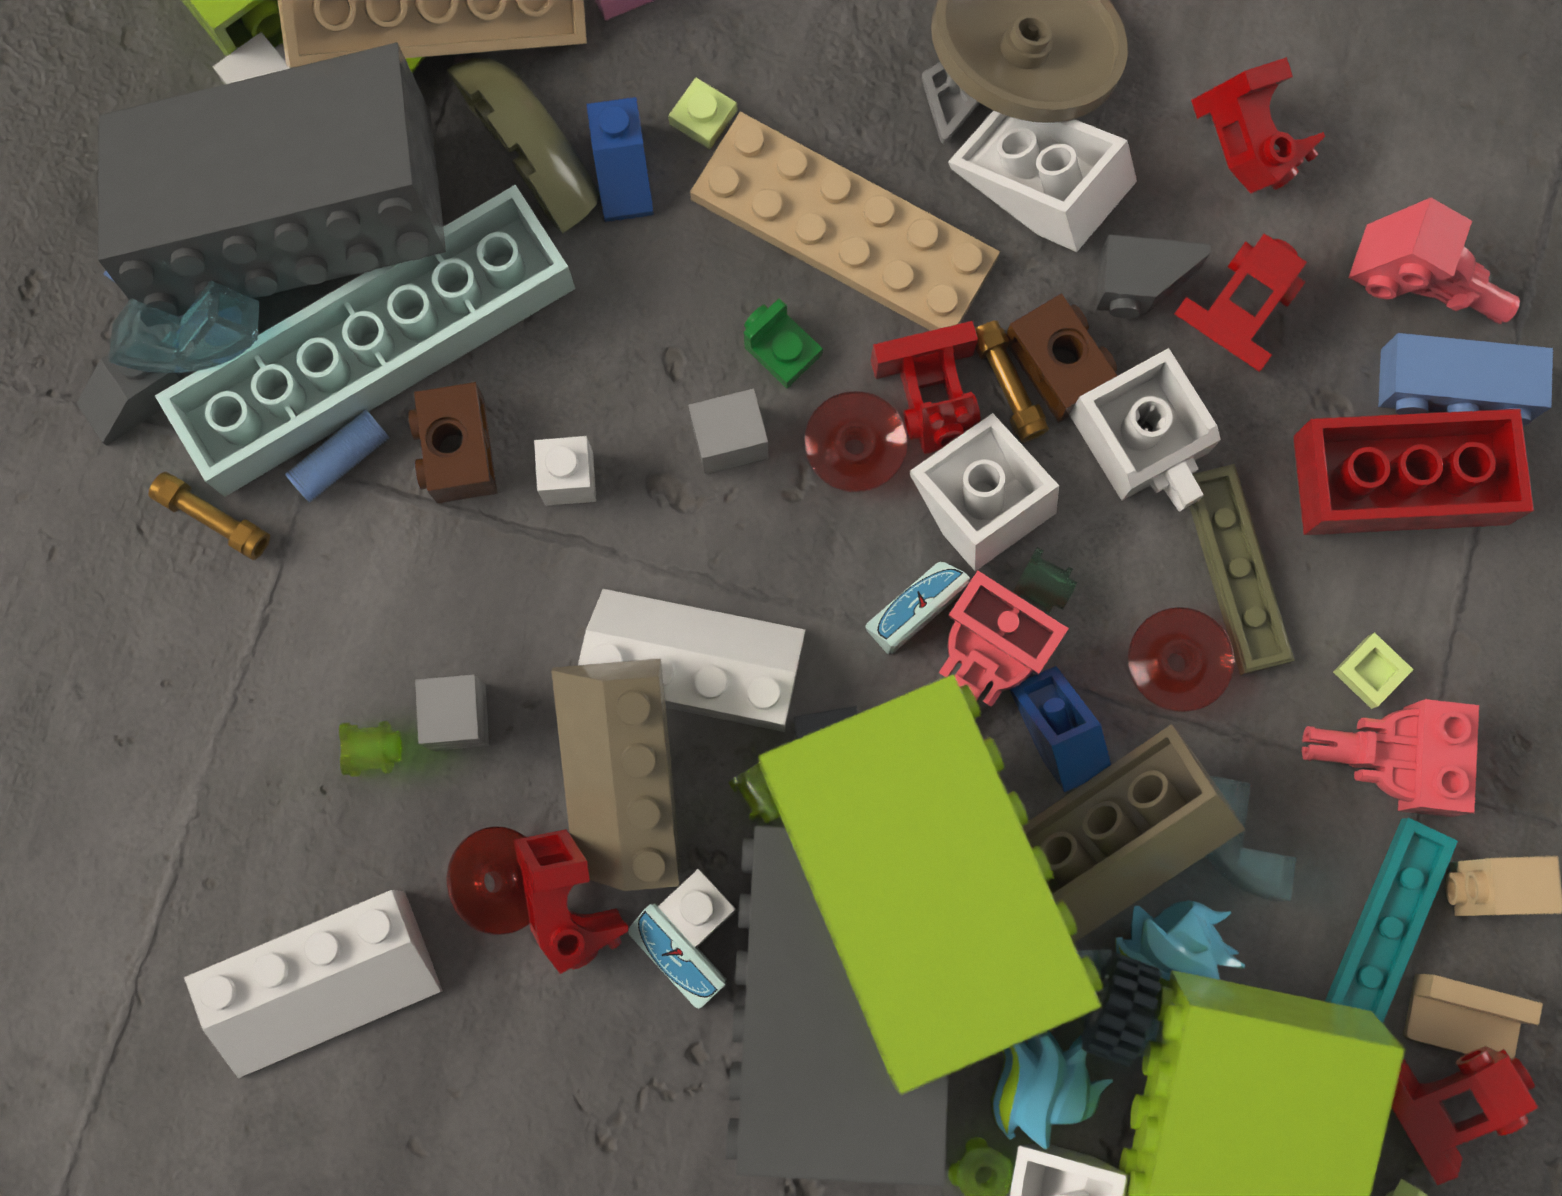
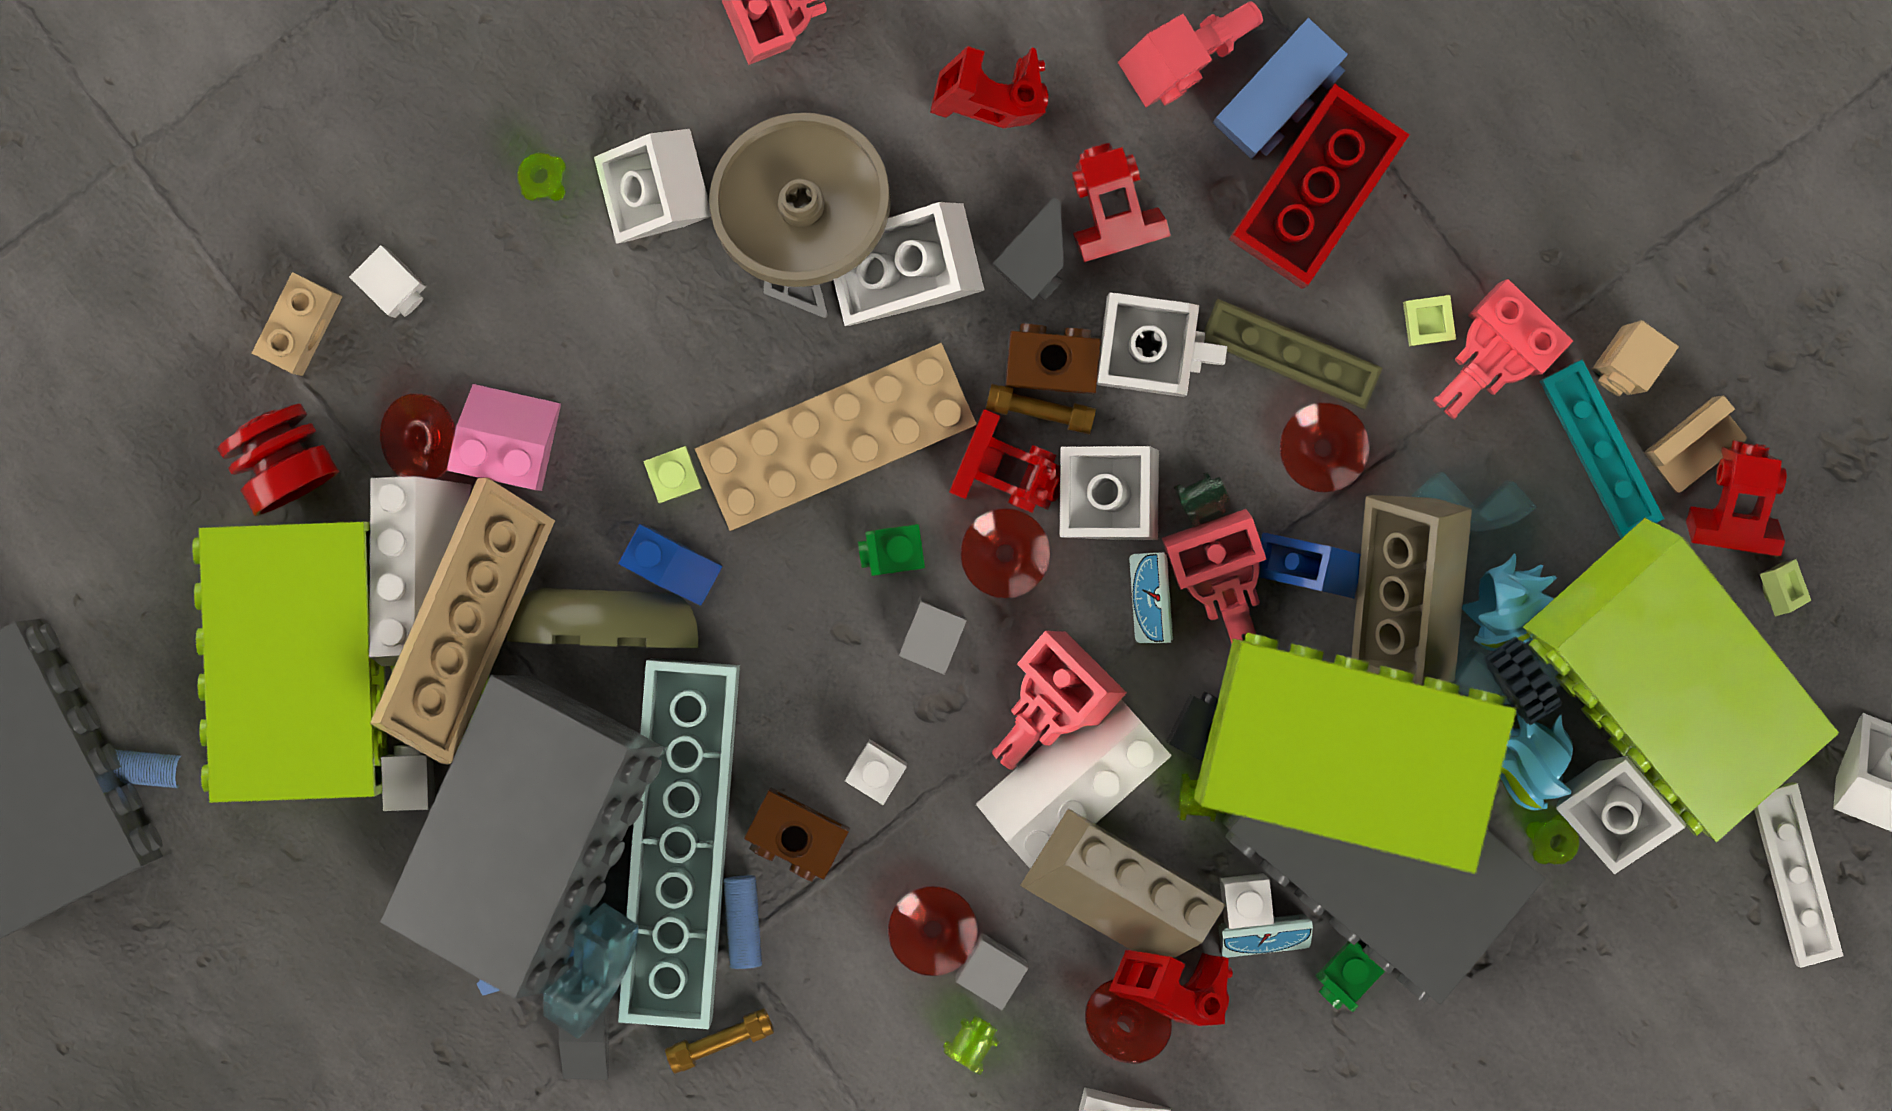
camera: 55 degrees left, 10 degrees up
(439, 609) = (932, 954): none -> clear red dish
(696, 1068) = (1348, 976): none -> green bracket
(761, 582) = (1057, 695): none -> coral brick

